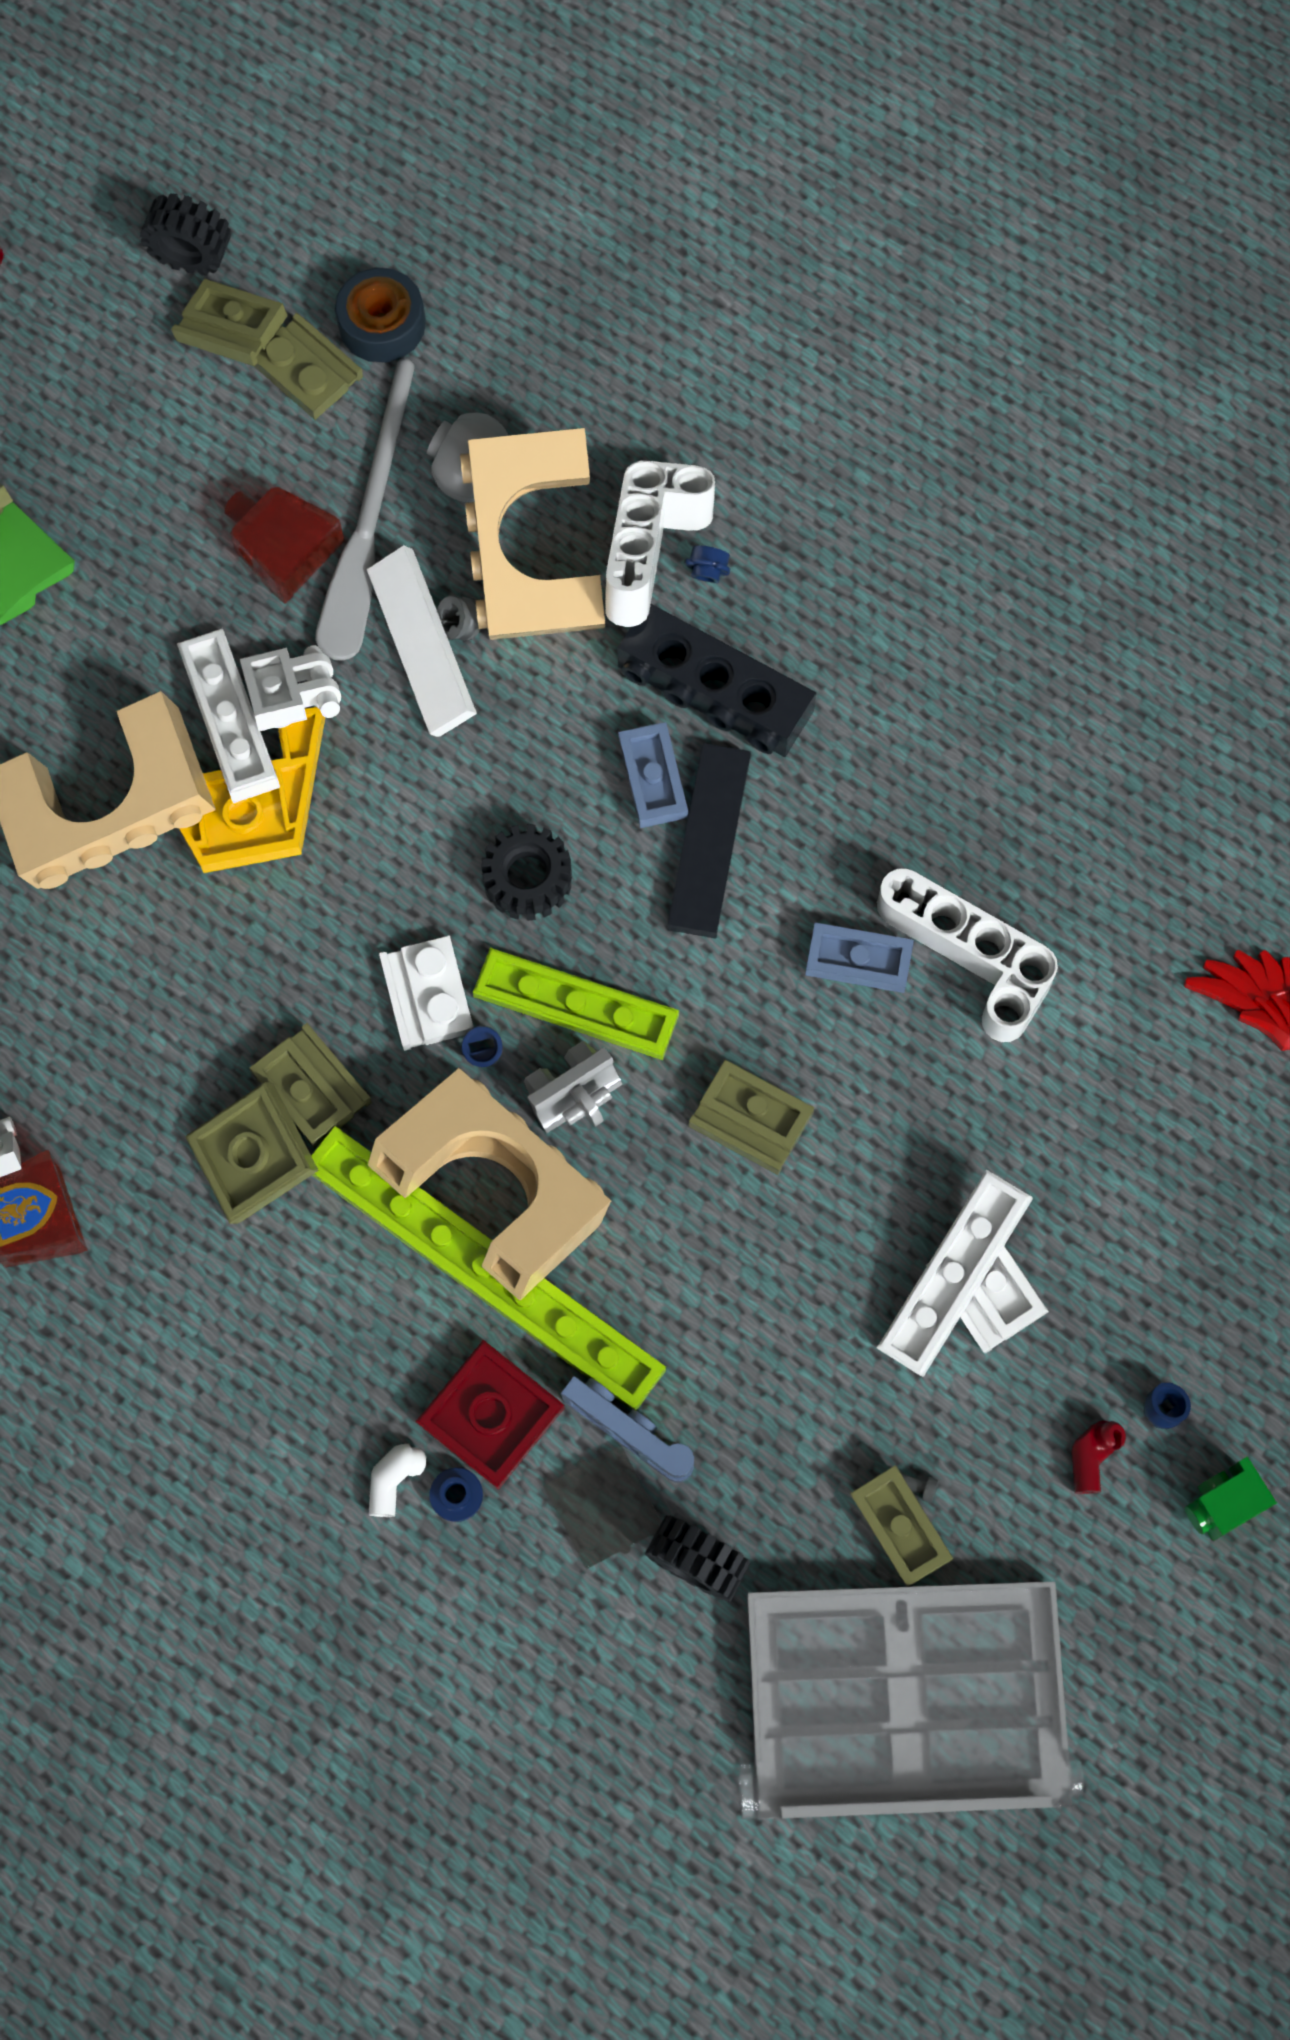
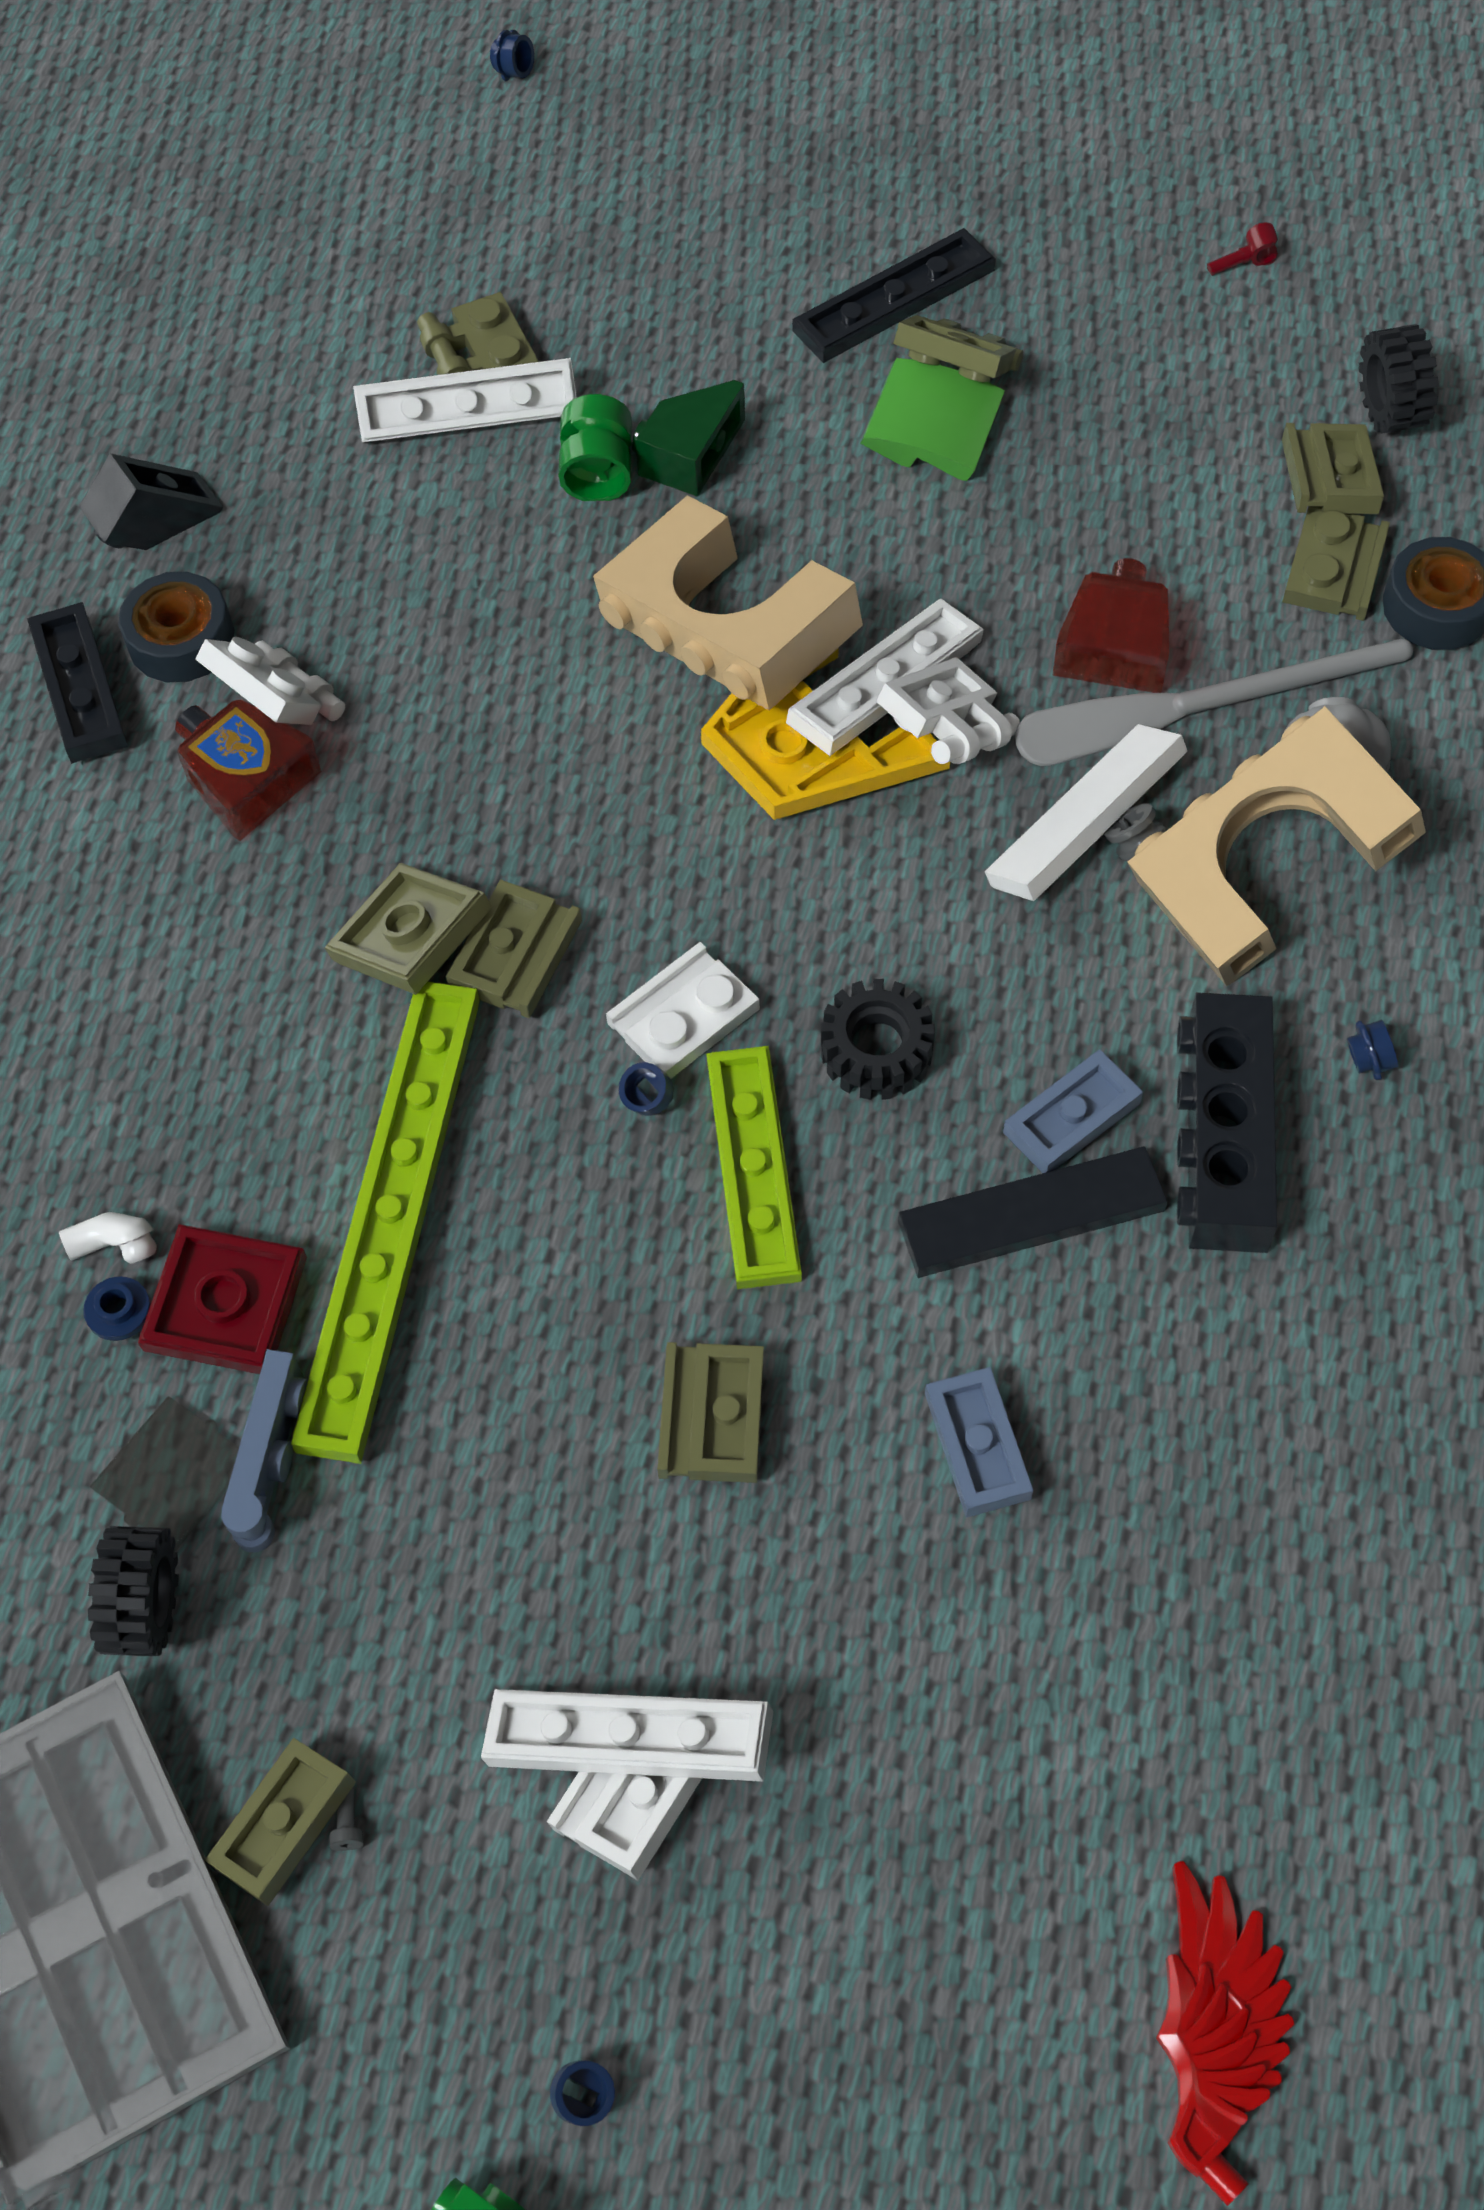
camera: 65 degrees right, 10 degrees down
(466, 1121) = (542, 1105): tan arch -> none
(574, 1092) = (643, 1208): light grey hips -> none
(651, 499) = (1333, 950): white beam -> none
(959, 946) = (1064, 1552): white beam -> none
(1091, 1450) = (481, 2020): dark red arm -> none

